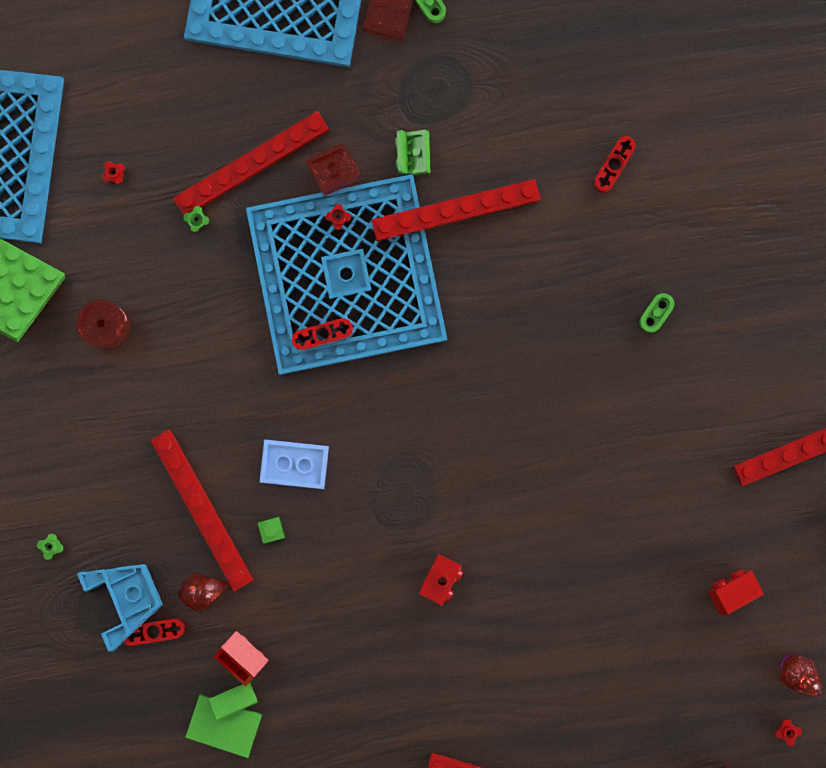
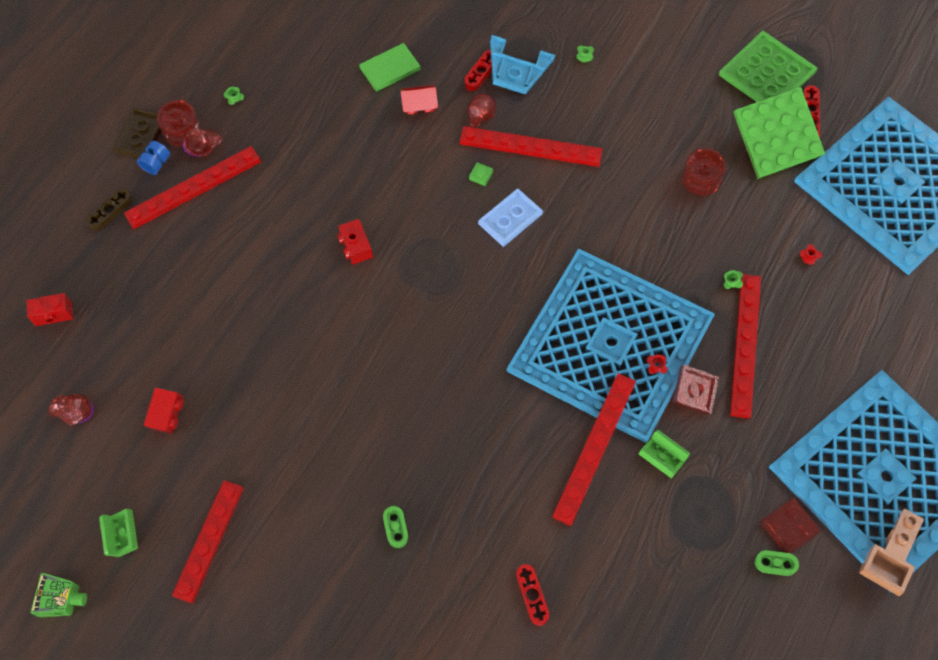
camera: 130 degrees right, 20 degrees down
(232, 701) = (398, 78): bright green tile -> none
(336, 325) = (582, 300): red beam -> none
(782, 730) = (52, 374): red plate -> none

